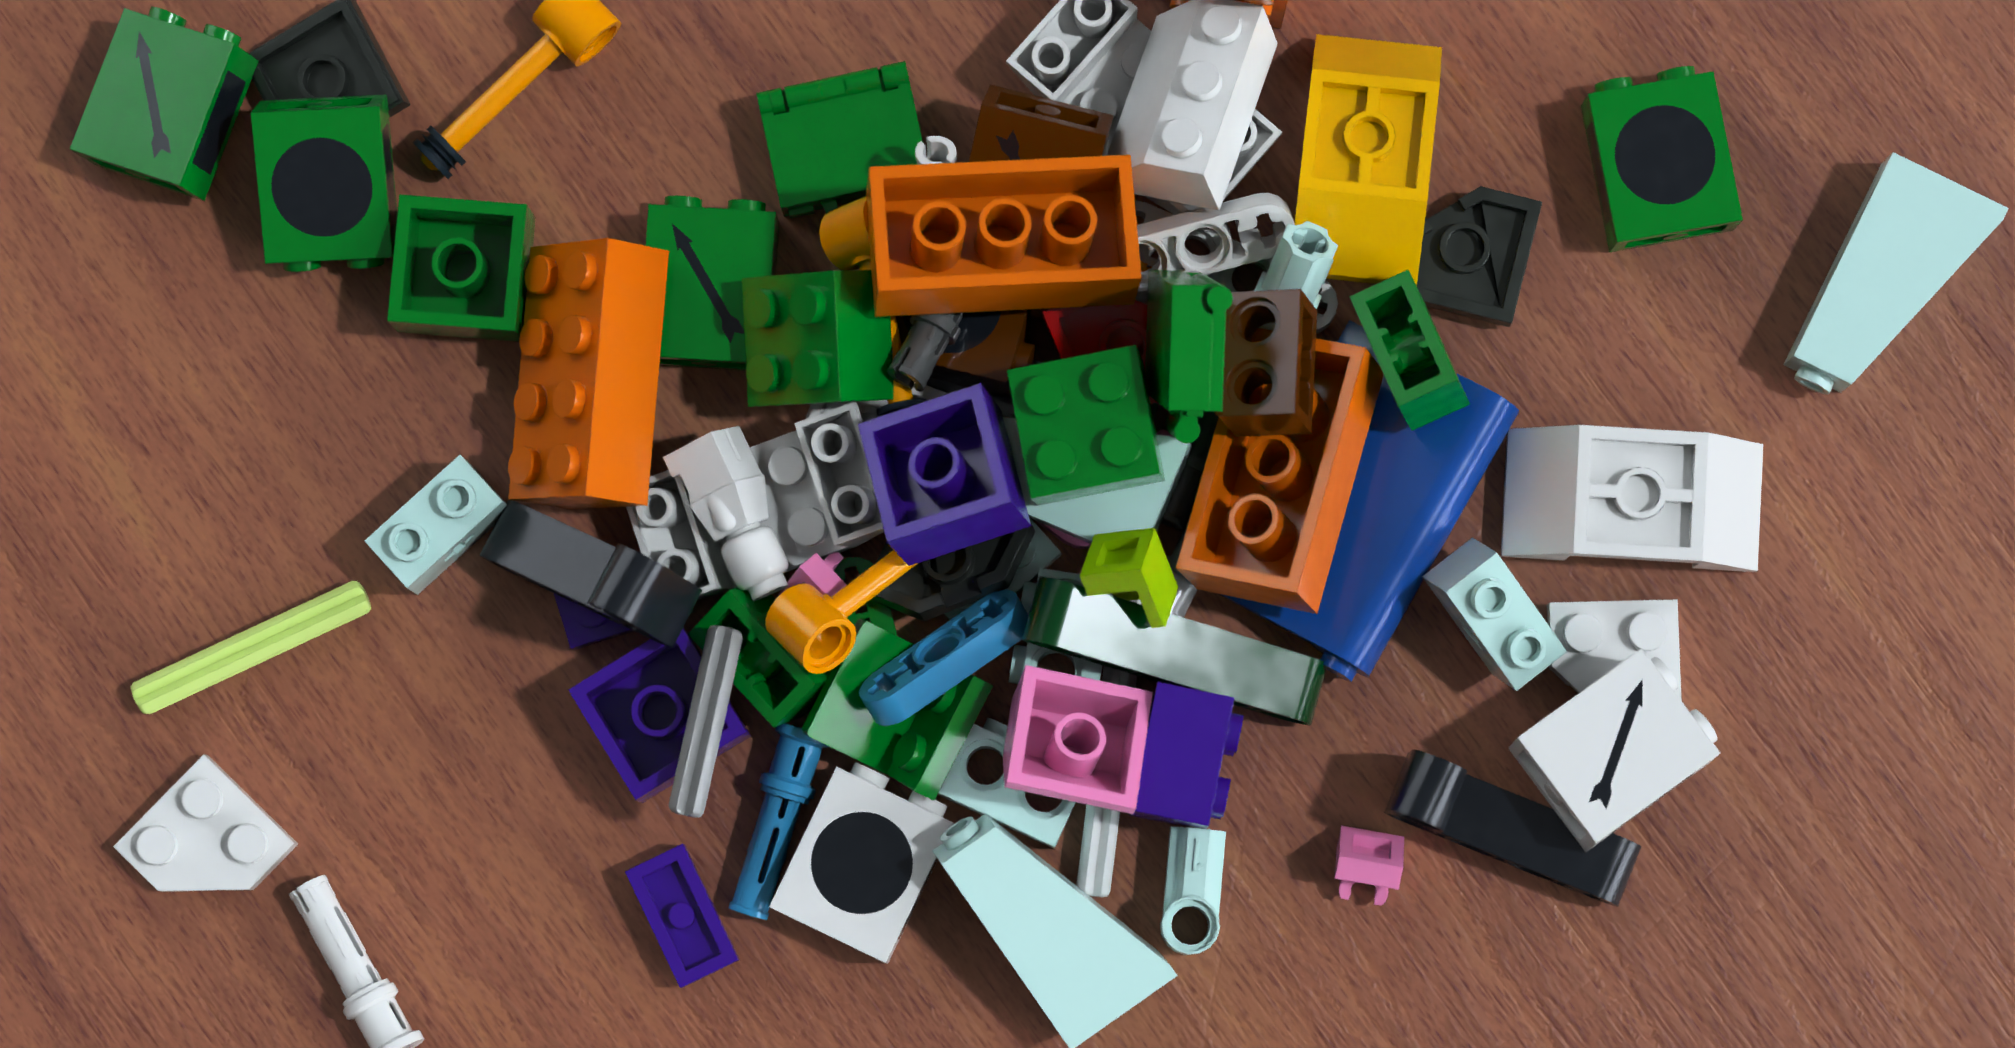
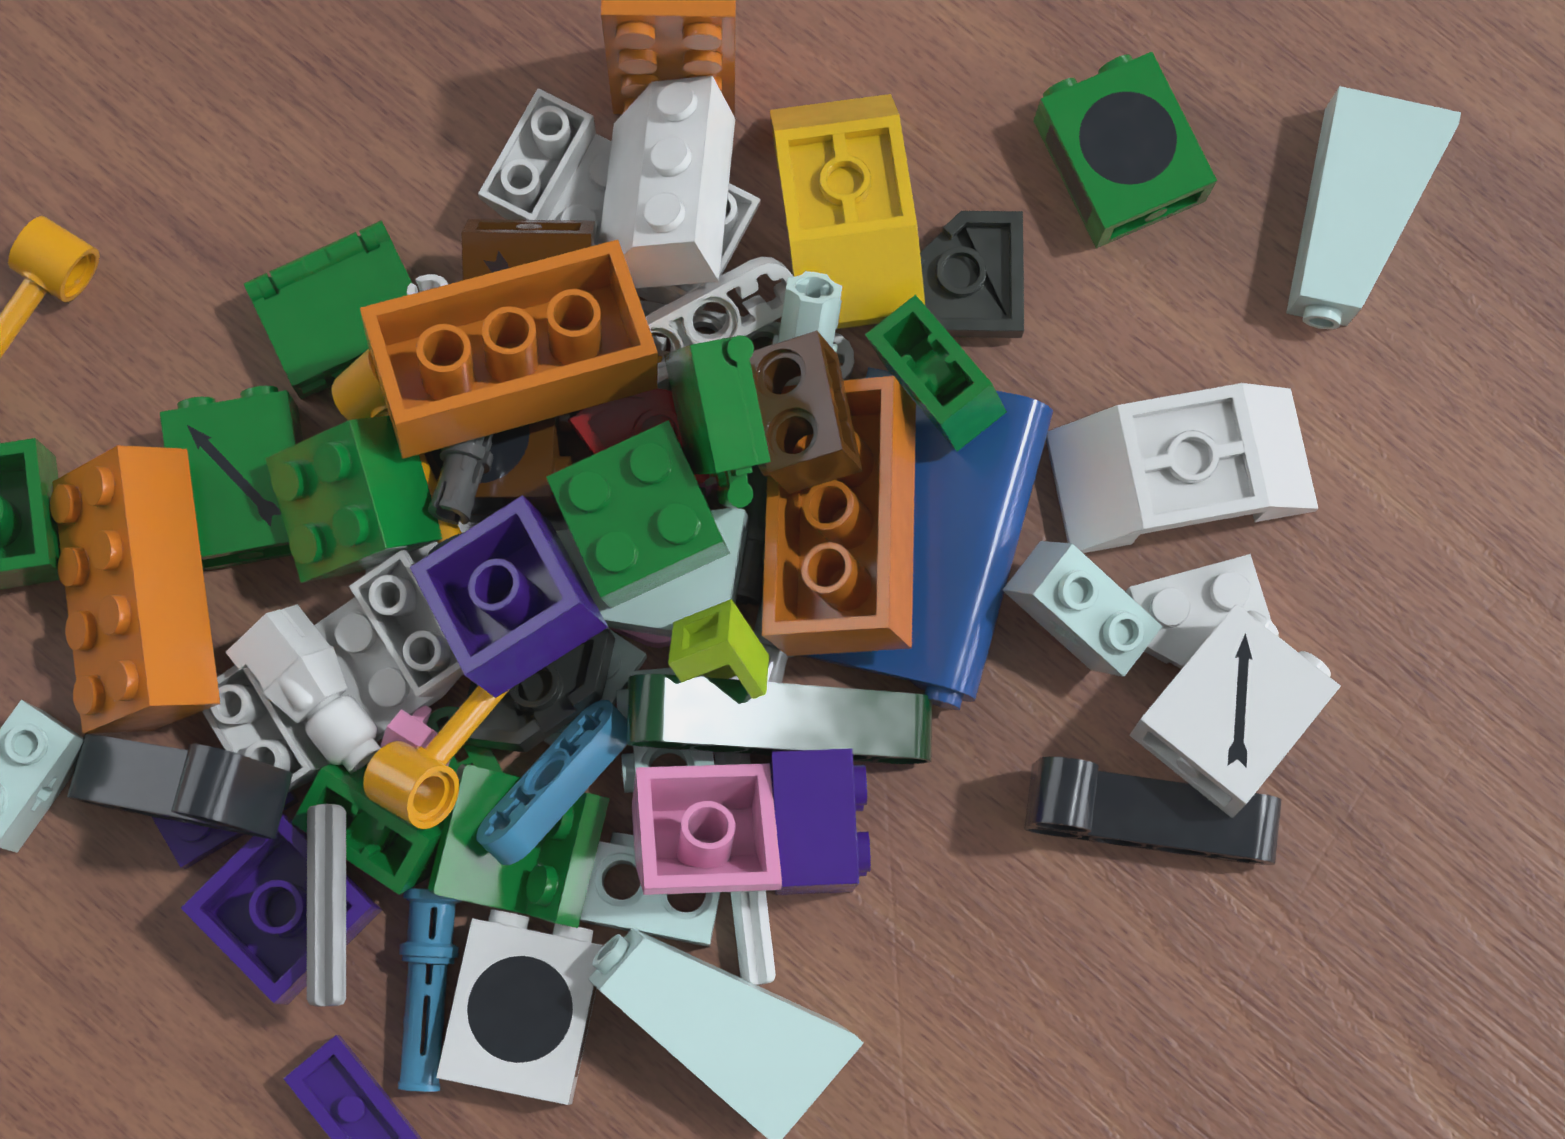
camera: 25 degrees left, 5 degrees down
(1193, 881) = (854, 945): light aqua piece -> none
(1369, 859) = (1022, 879): bright pink tile -> none

